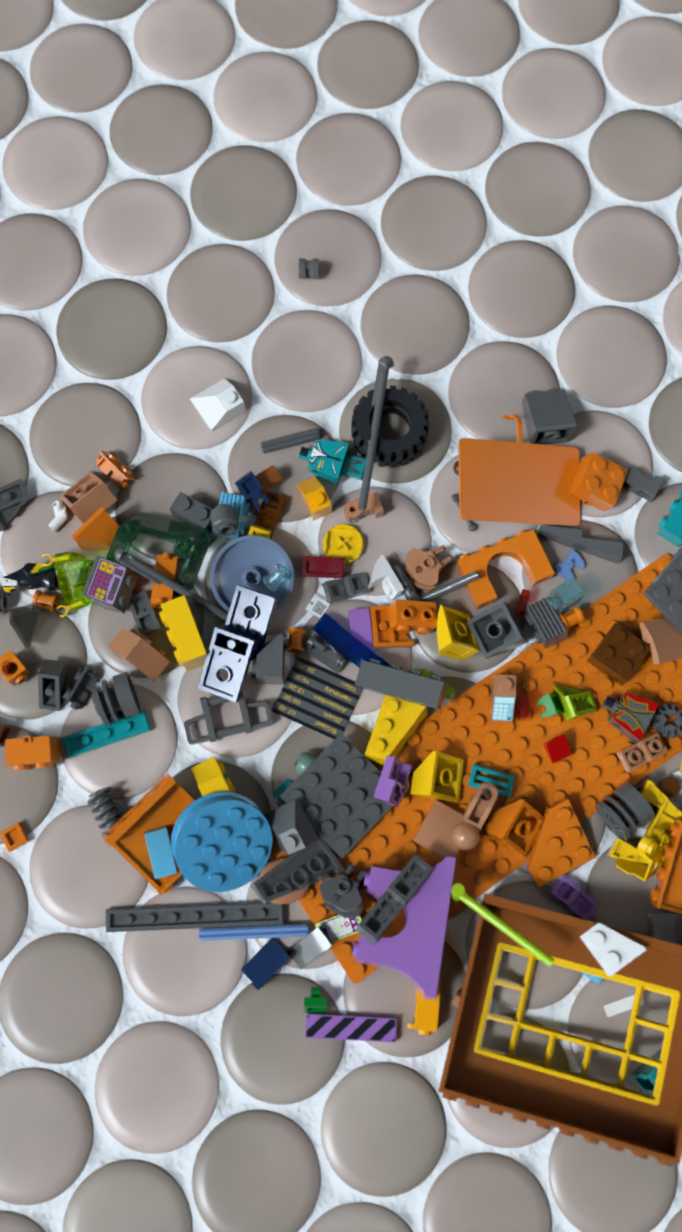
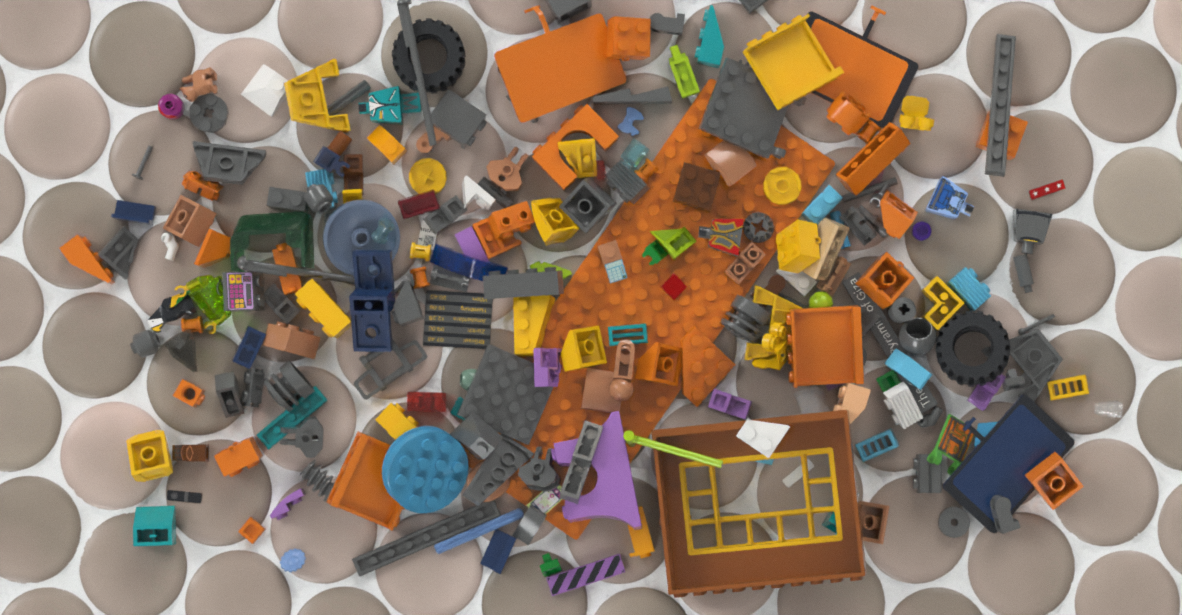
camera: 20 degrees left, 10 degrees up
(37, 471) = (134, 212): none -> dark blue panel
(43, 886) = (292, 560): none -> medium blue piece
(56, 437) = (143, 162): none -> dark grey pin
(57, 824) = (283, 507): none -> medium lavender slope
(92, 644) = (248, 347): none -> dark blue hinge
(109, 757) = (303, 436): none -> dark grey hinge
(117, 383) = (175, 111): none -> magenta head
(149, 393) = (206, 123): none -> dark grey plate
(149, 456) = (227, 162): none -> dark grey wing
(154, 372) = (202, 84): none -> nougat animal
(160, 852) = (378, 497): medium azure slope -> none
(252, 771) = (427, 401): none -> clear red brick
(253, 424) = (308, 100): none -> yellow wing
(306, 614) = (420, 251): none -> yellow bush
(396, 497) = (458, 118): none -> dark grey panel
(450, 586) = (534, 181): dark grey bar -> none
(508, 579) = (581, 156): none -> yellow wing
(522, 708) = (632, 264): clear red tile -> none
(640, 537) = (683, 73): none -> lime hinge

